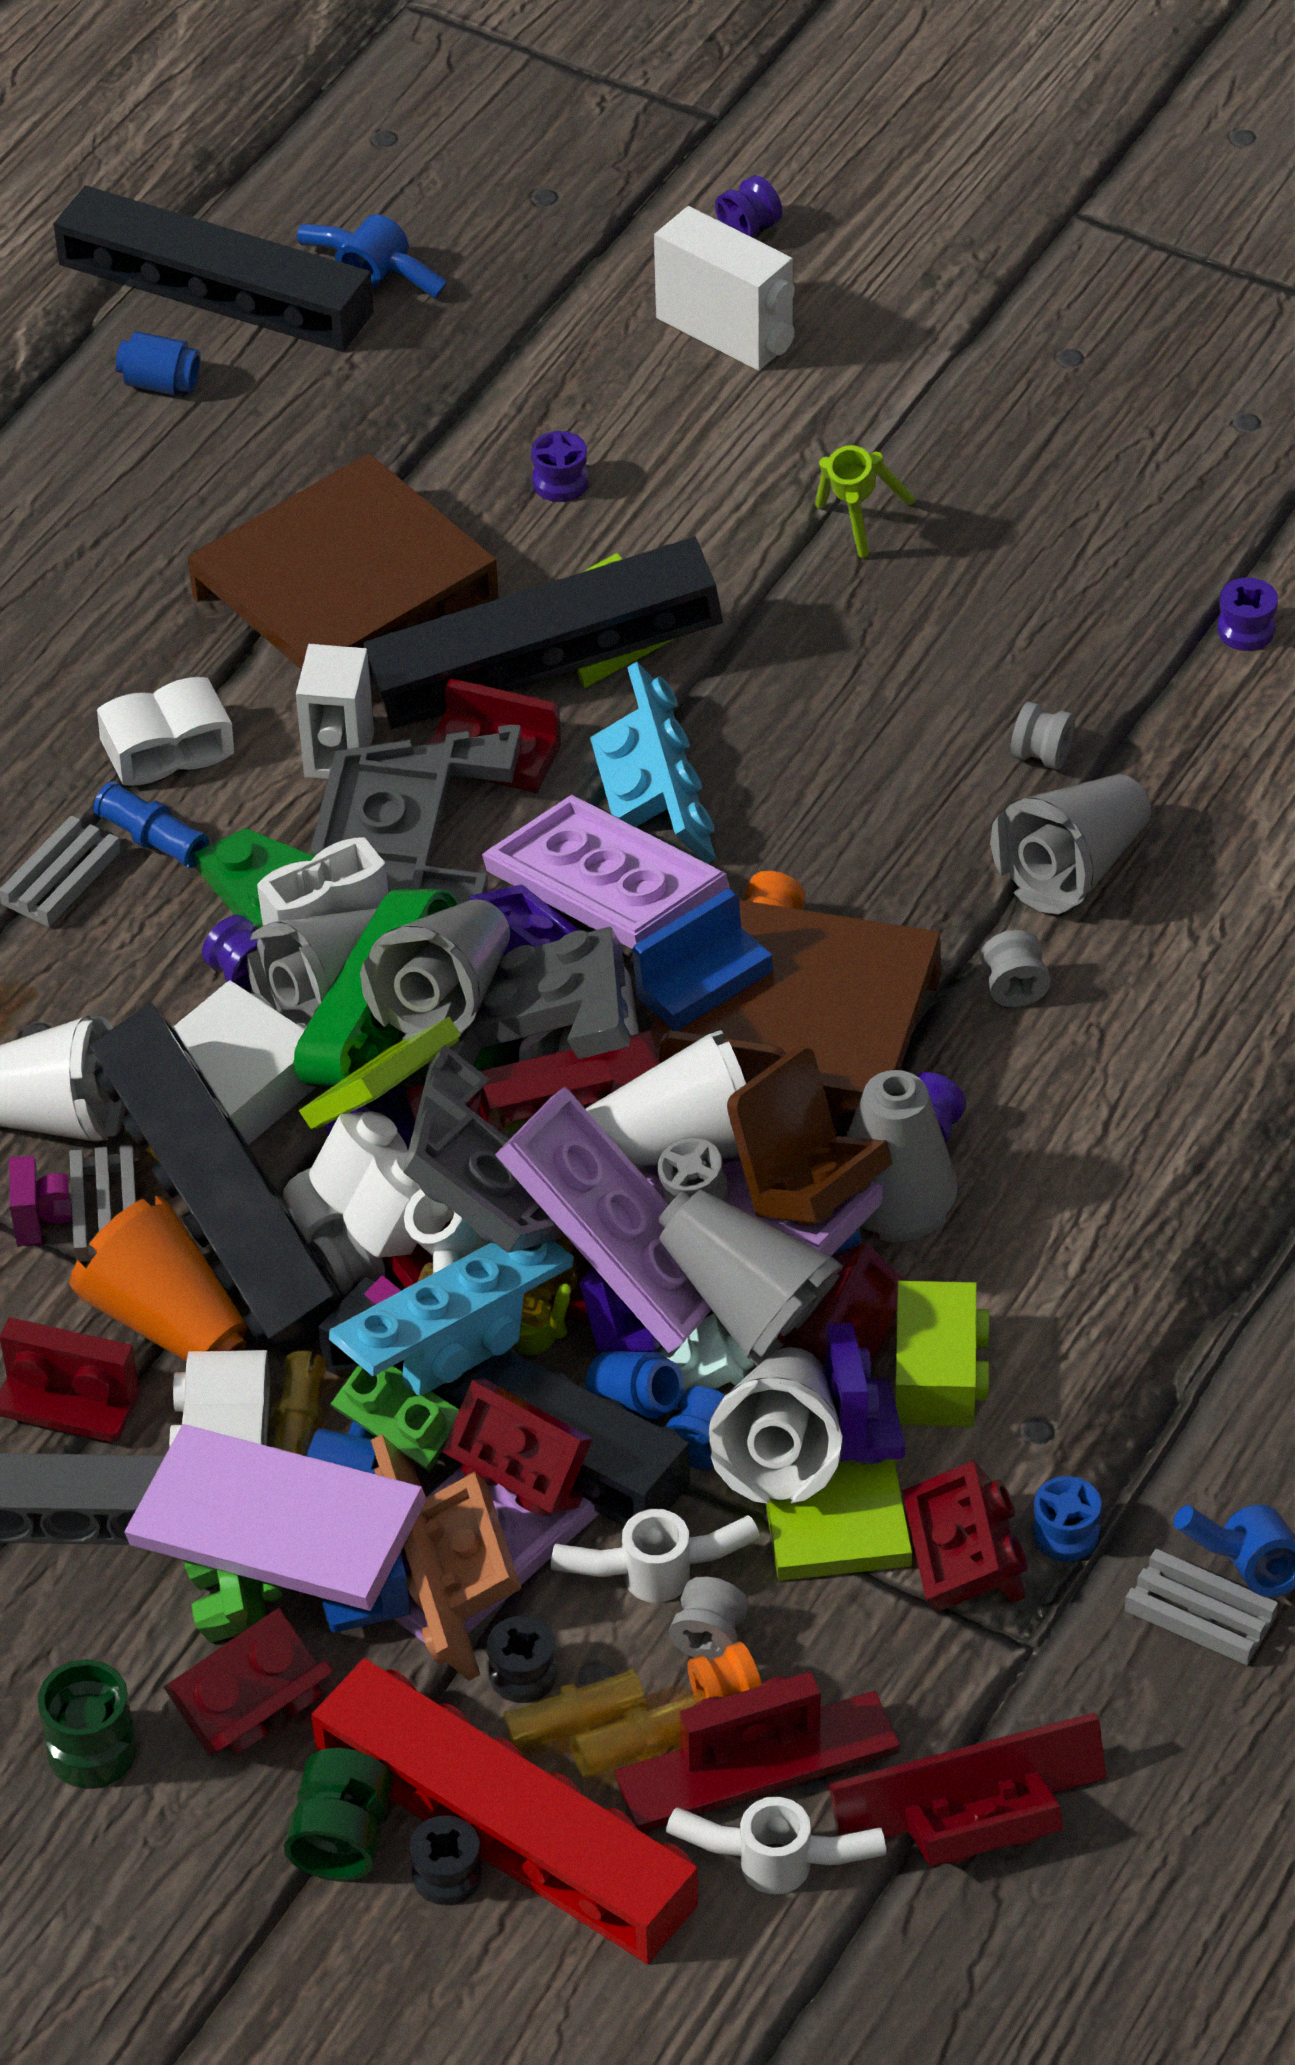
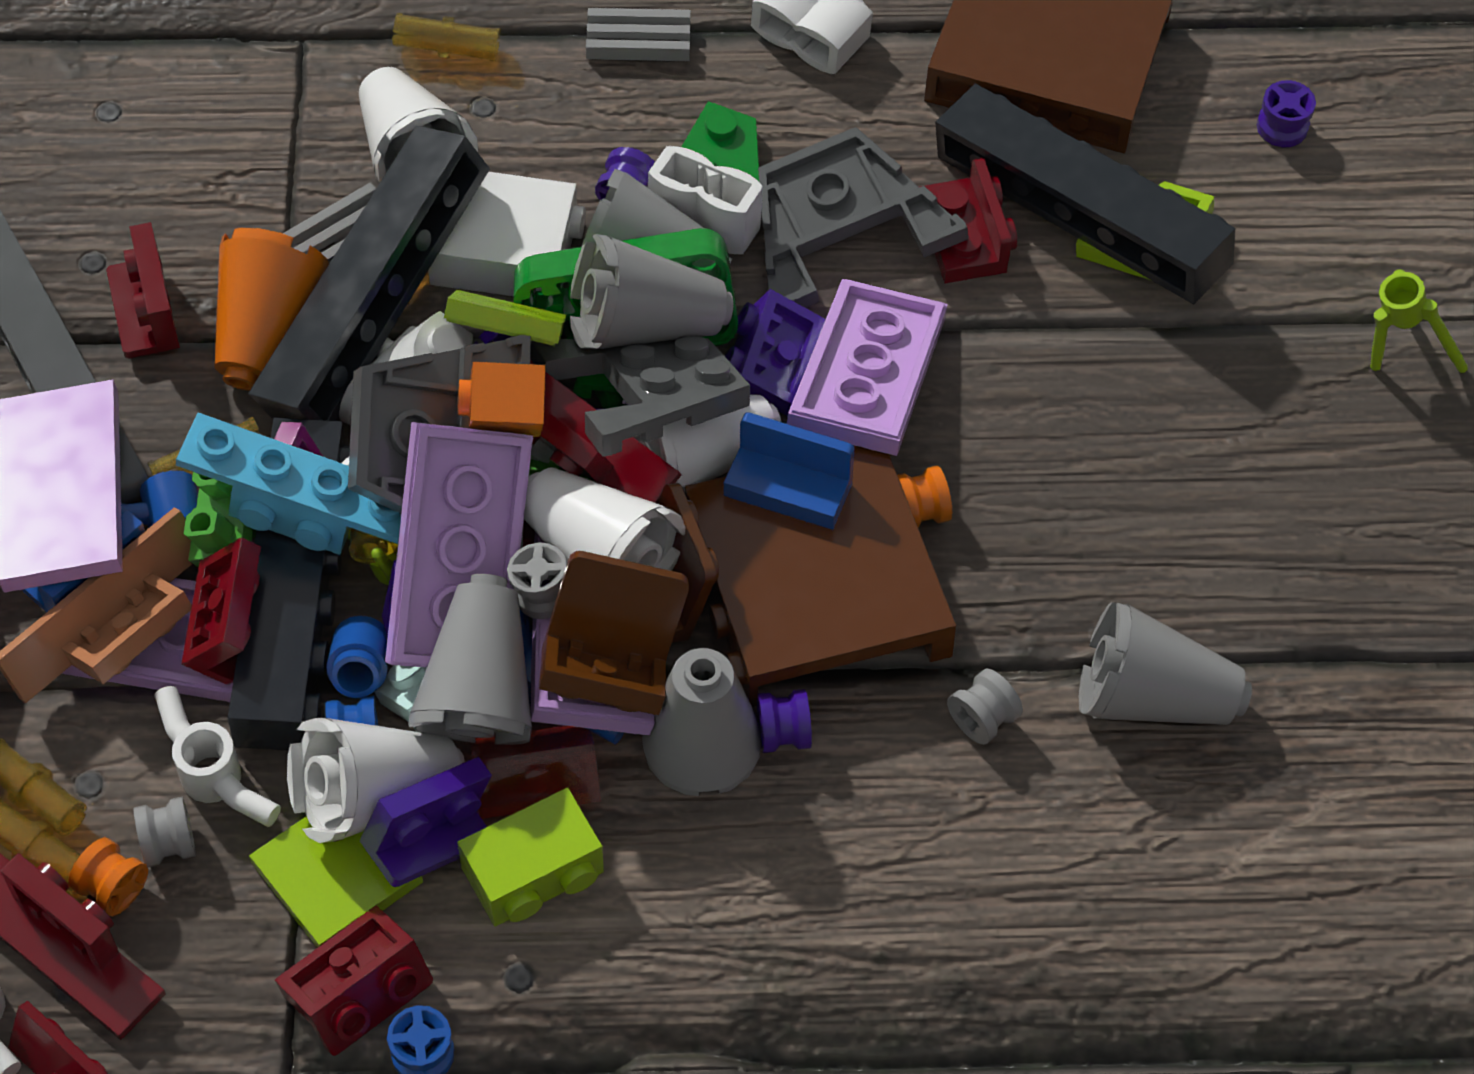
camera: 55 degrees right, 10 degrees up
(36, 1200) = (303, 183): magenta tile -> none
(149, 823) = (717, 59): blue pin -> none
(225, 1394) = (161, 408): white brick -> none
(333, 705) = (894, 99): white brick -> none
(513, 1674) = (64, 738): black wheel -> none
(517, 1080) = (504, 397): none -> orange brick
(647, 766) = (1017, 342): medium azure bracket -> none
(1042, 735) = (1260, 595): light grey wheel -> none

